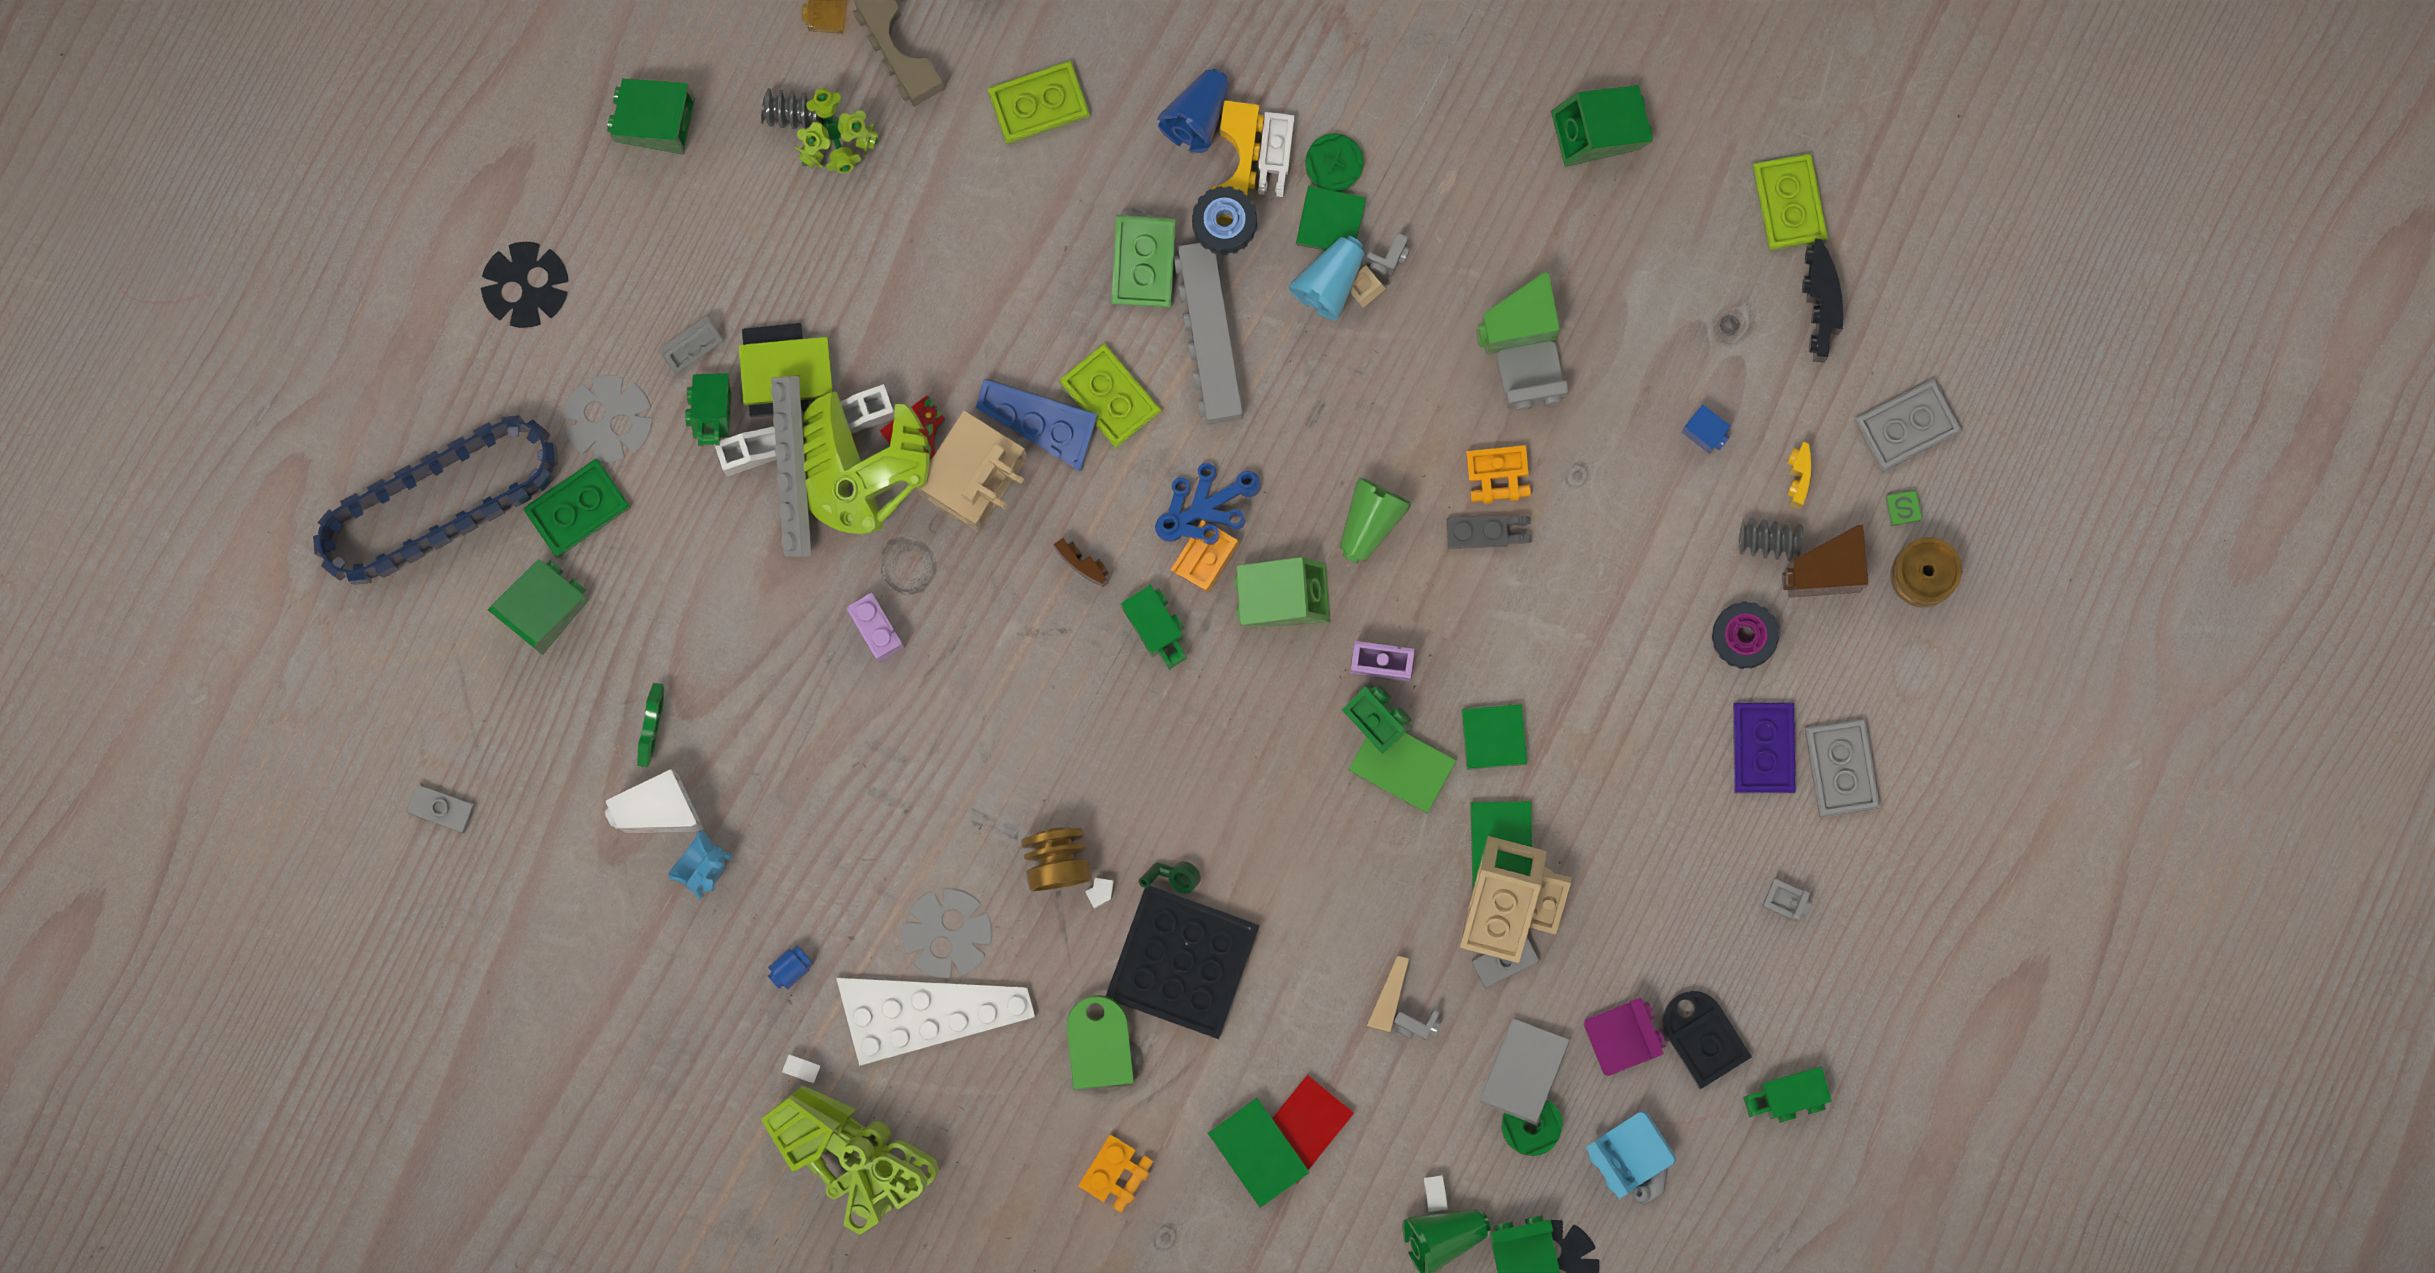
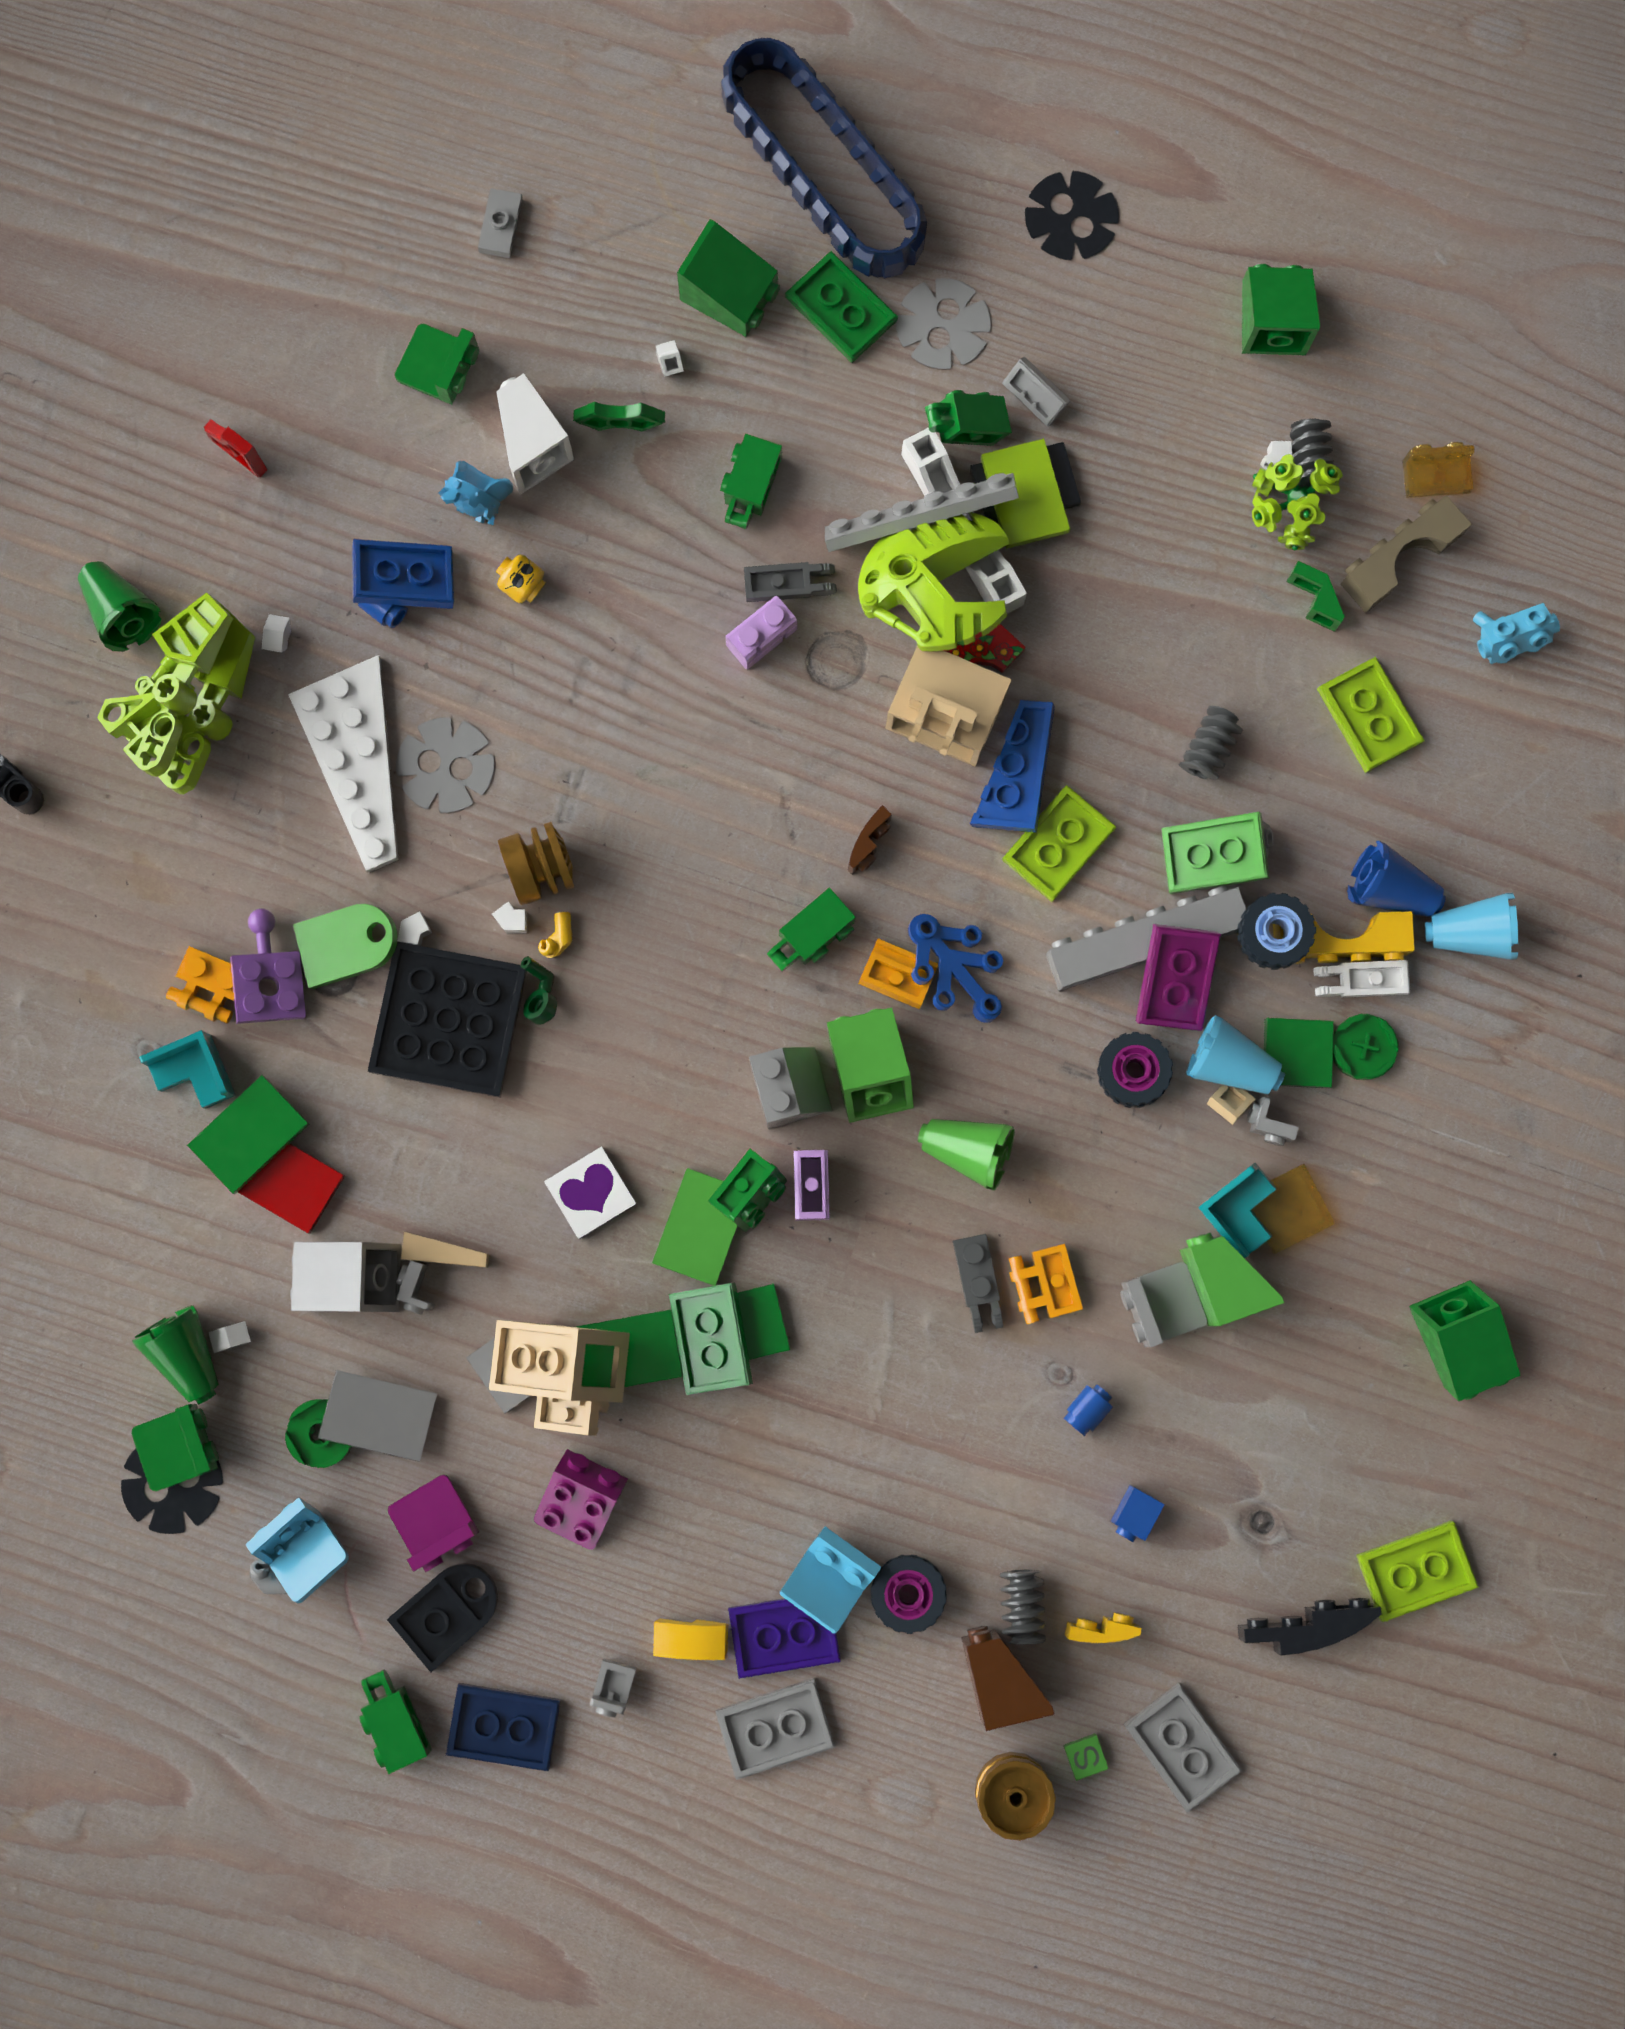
camera: 75 degrees right, 0 degrees up
(567, 885) = (437, 362): none -> green bracket
(601, 672) = (669, 358): none -> white piece
(618, 1081) = (236, 447): none -> red tile
(729, 615) = (751, 478): none -> green brick
(750, 1210) = (117, 607): none -> green cone
(766, 943) = (402, 574): none -> blue tile
(787, 139) = (1275, 452): none -> white piece
(787, 838) = (520, 578): none -> yellow head
(829, 599) = (787, 581): none -> dark grey hinge
(932, 124) = (1325, 607): none -> green slope
(1043, 246) = (1210, 743): none -> dark grey piece
(1095, 981) = (414, 929): none -> white piece
(1111, 1105) = (280, 967): none -> medium lavender plate
(1125, 851) = (560, 939): none -> yellow arm
(1183, 1194) = (194, 1060): none -> teal panel
(1247, 47) = (1477, 928): none -> medium azure cone
(1249, 312) = (1177, 977): none -> magenta tile
(1292, 667) = (790, 1085): none -> light grey slope
(1323, 346) = (1146, 1052): none -> black wheel
(1356, 858) = (590, 1192): none -> tile
(1398, 1084) = (345, 1276): none -> slope
(1458, 302) = (1231, 1210): none -> teal panel
(1465, 253) = (1293, 1209): none -> clear yellow tile
(1501, 771) = (710, 1338): none -> tile
(1612, 455) = (1088, 1409): none -> blue brick
(1623, 906) = (579, 1499): none -> magenta bracket
(1723, 699) = (829, 1580): none -> medium azure bracket
(1757, 827) = (690, 1640): none -> yellow slope
(1807, 1001) = (503, 1727): none -> dark blue tile

